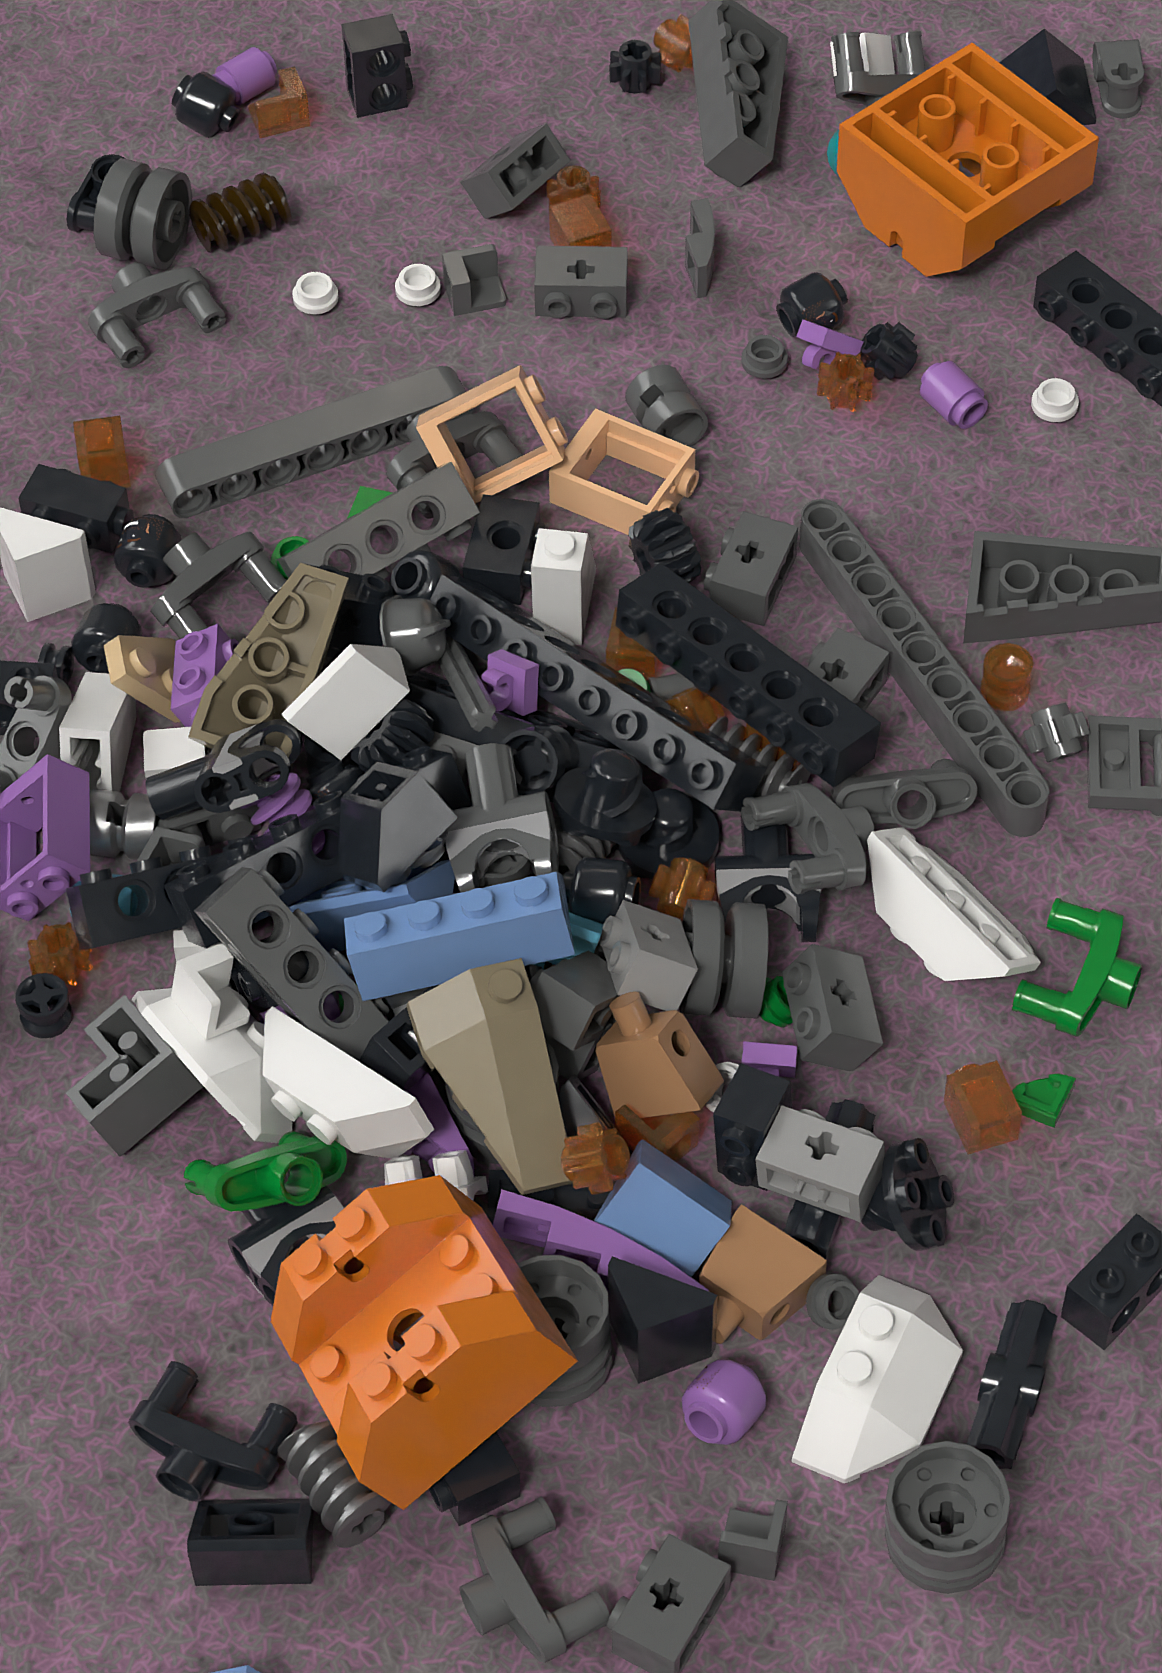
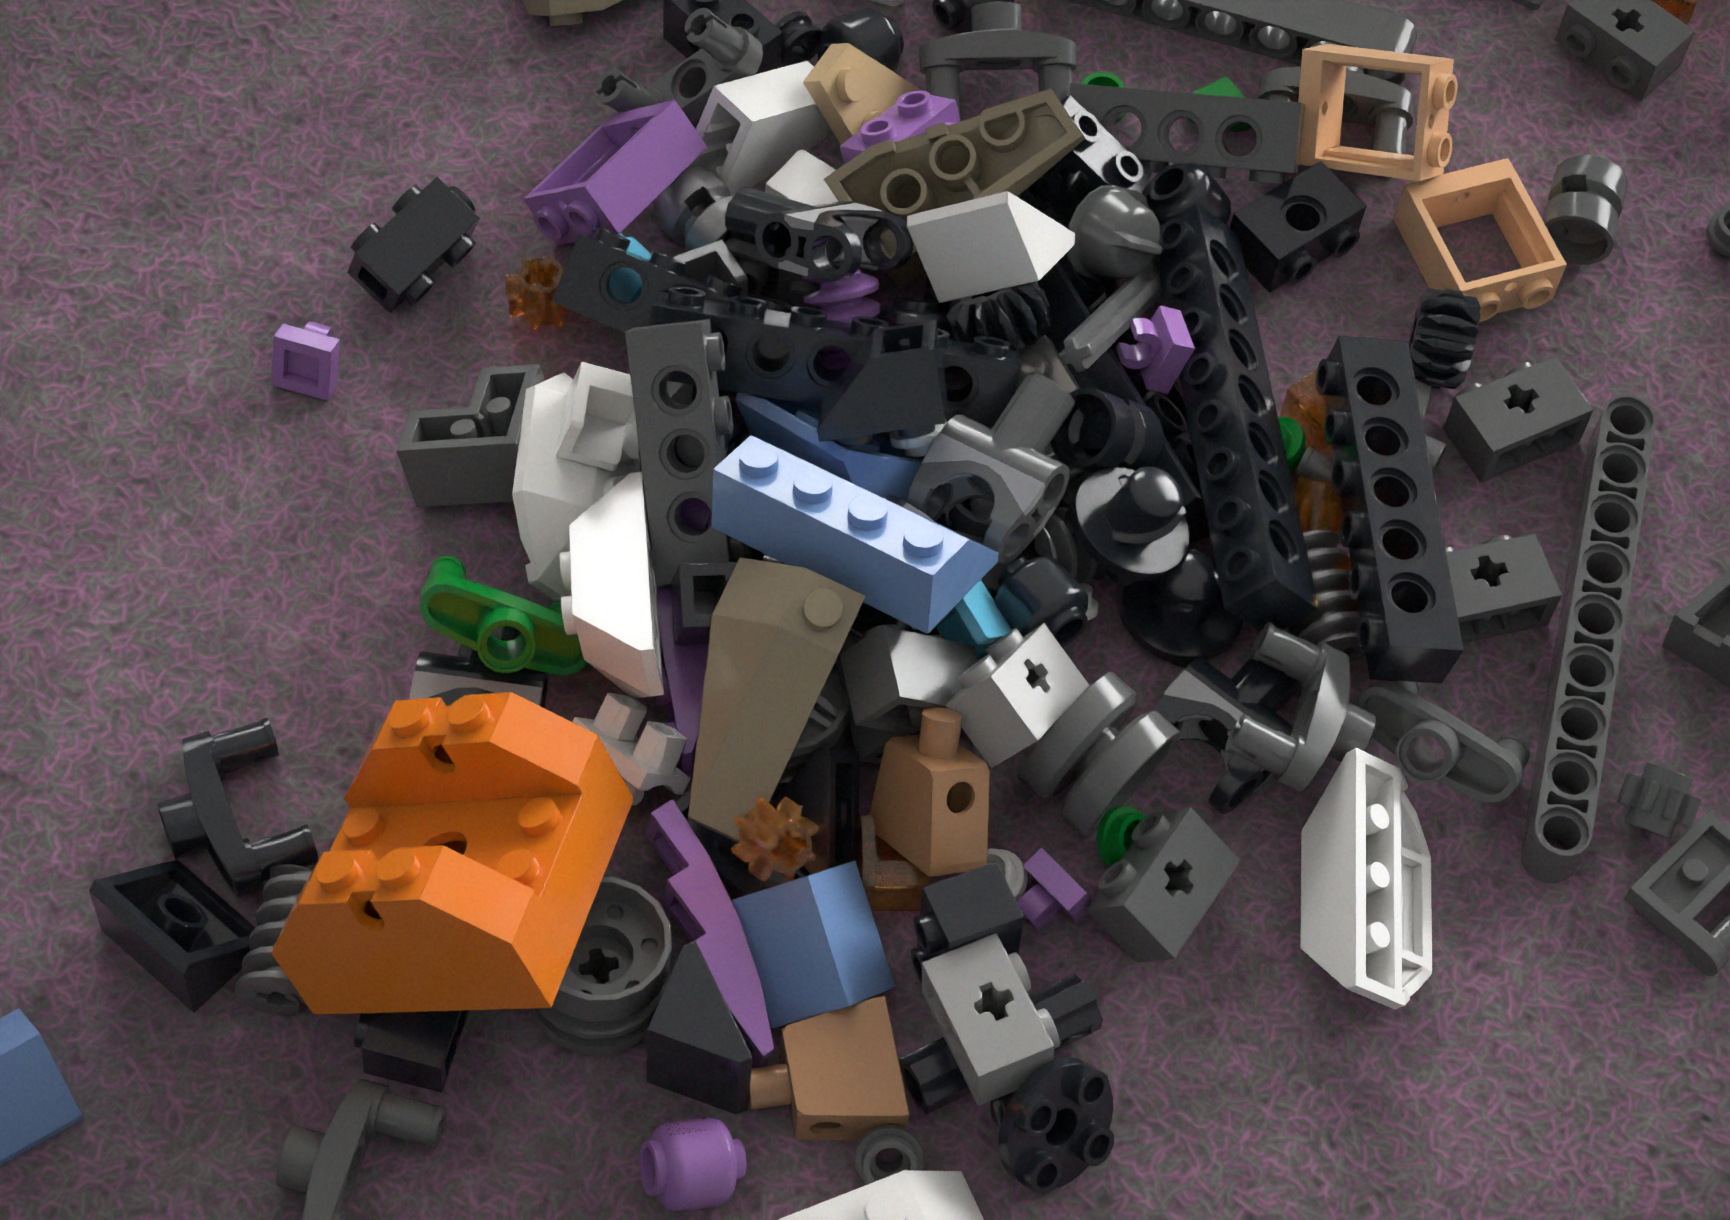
camera: 35 degrees right, 5 degrees up
(36, 995) = (478, 312): black wheel -> none
(562, 581) = (1309, 296): white slope -> none
(678, 883) = (1140, 661): clear orange gear -> none
(982, 1106) = (1215, 1096): clear orange brick -> none
(1006, 677) = (1664, 709): clear orange wheel -> none
(1044, 1098) = (1289, 1138): green tile -> none
(1101, 978) = (1461, 1070): green connector -> none

